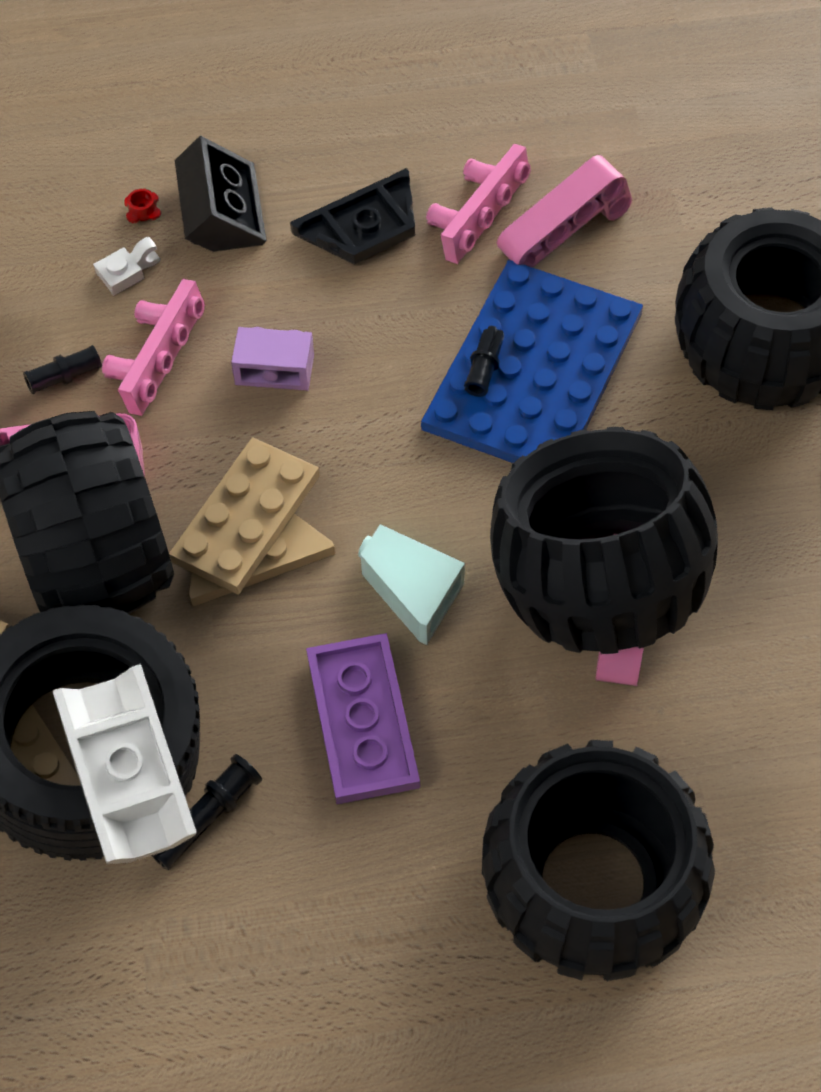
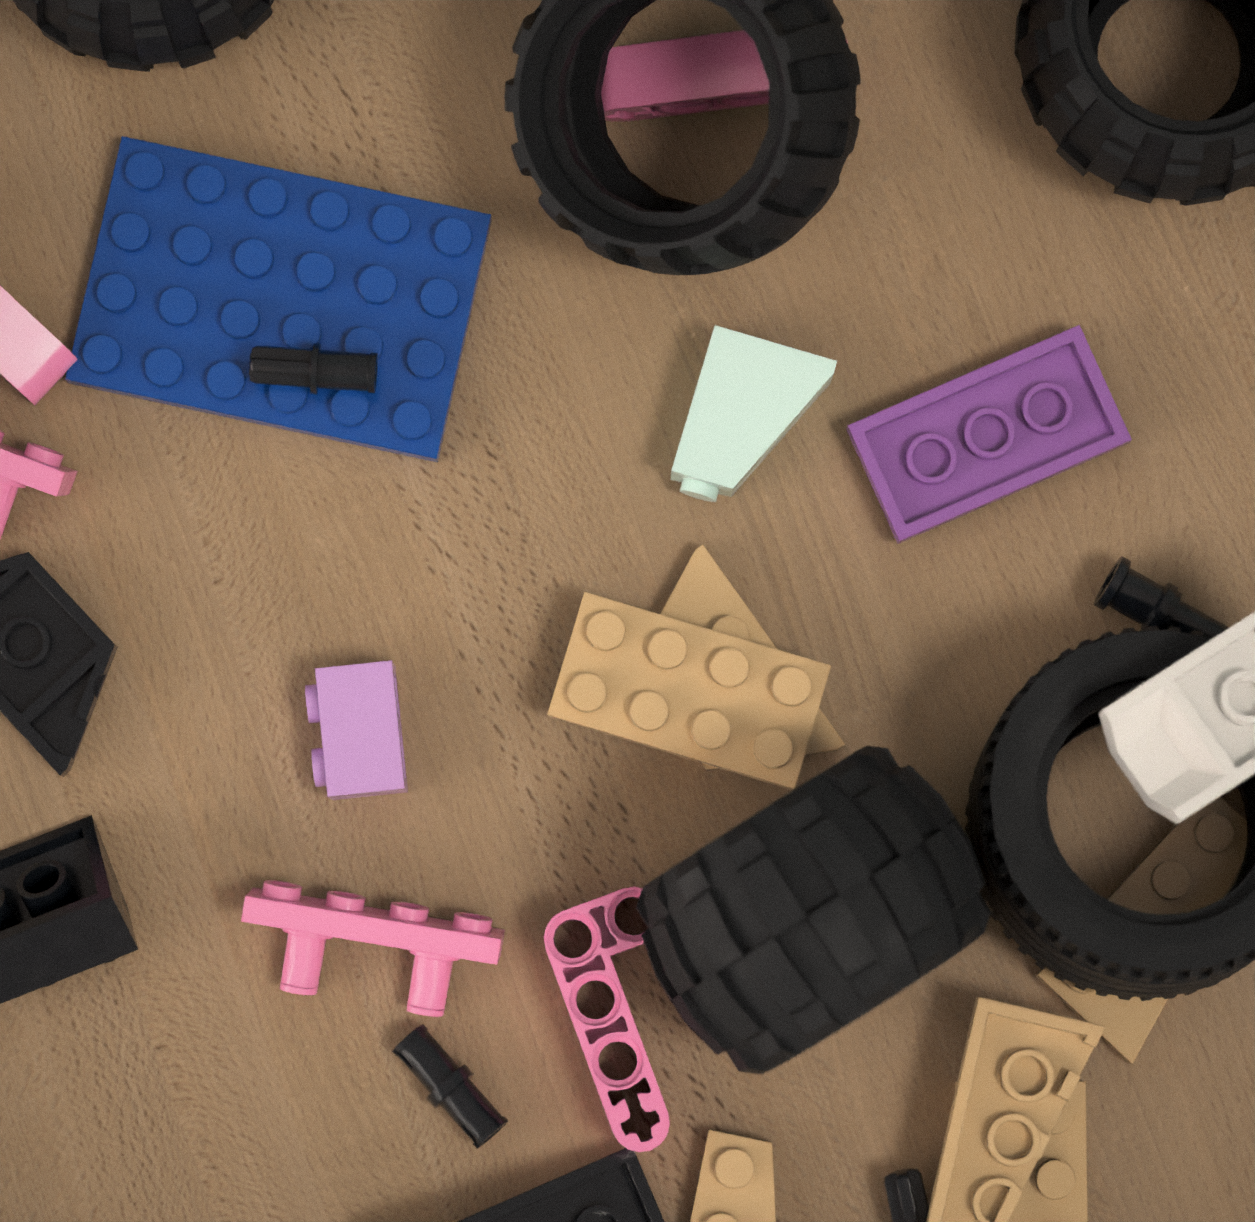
camera: 105 degrees left, 25 degrees up
(124, 269) = (208, 1053): white plate -> none
(142, 206) = (42, 1051): red plate -> none

